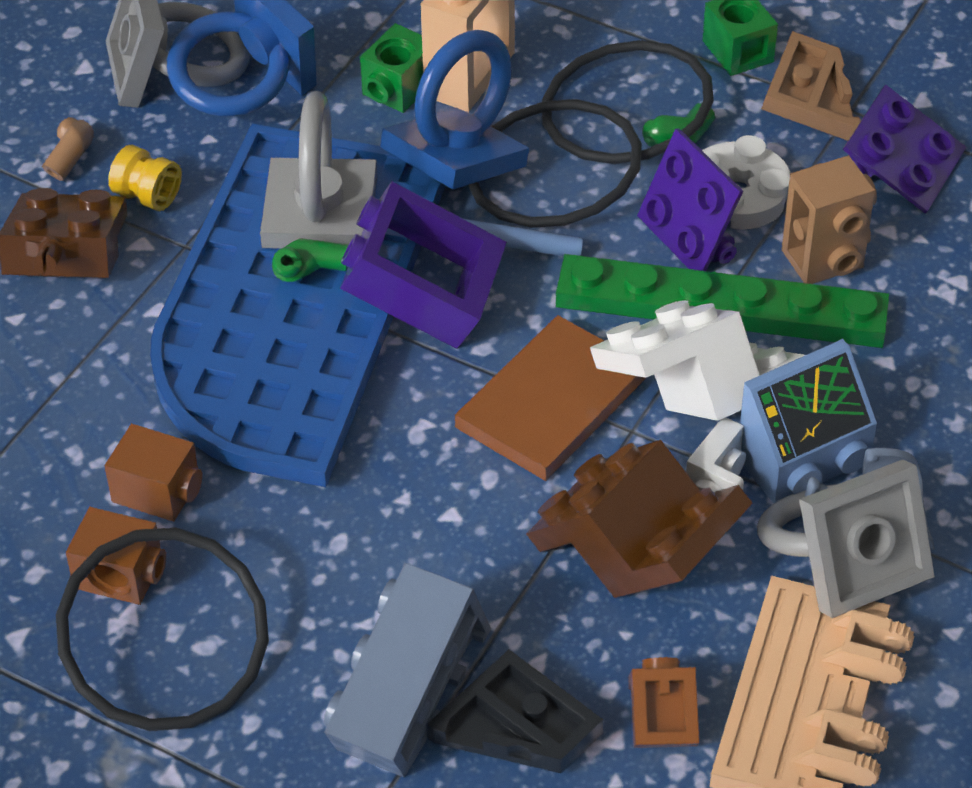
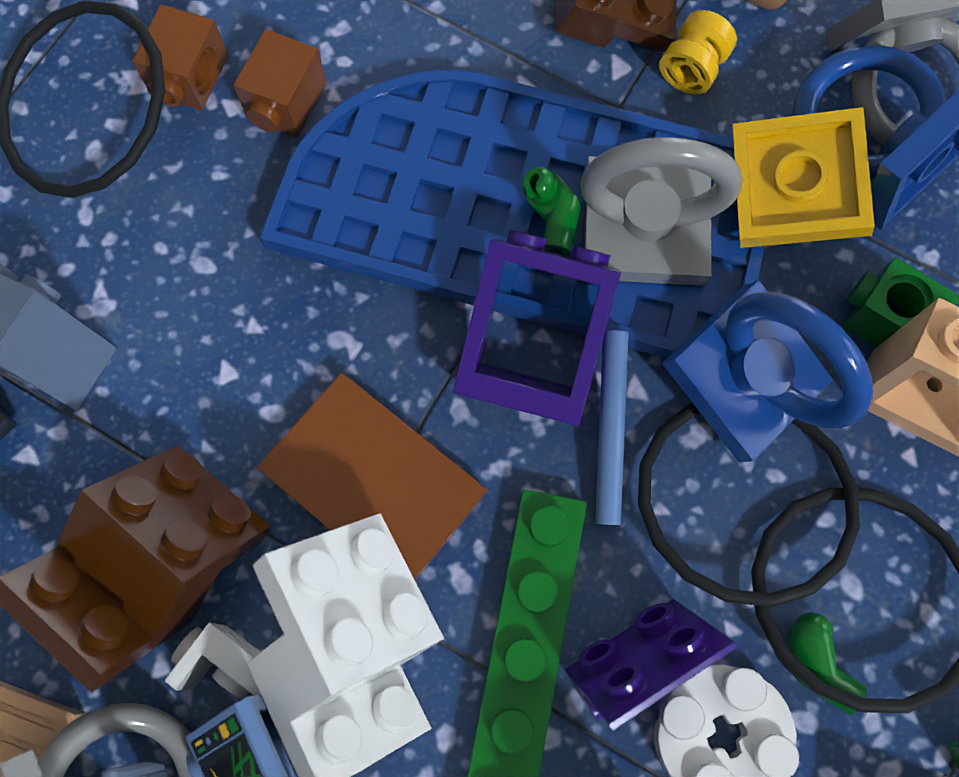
camera: 90 degrees right, 25 degrees up
(275, 90) = (803, 178): none -> yellow plate

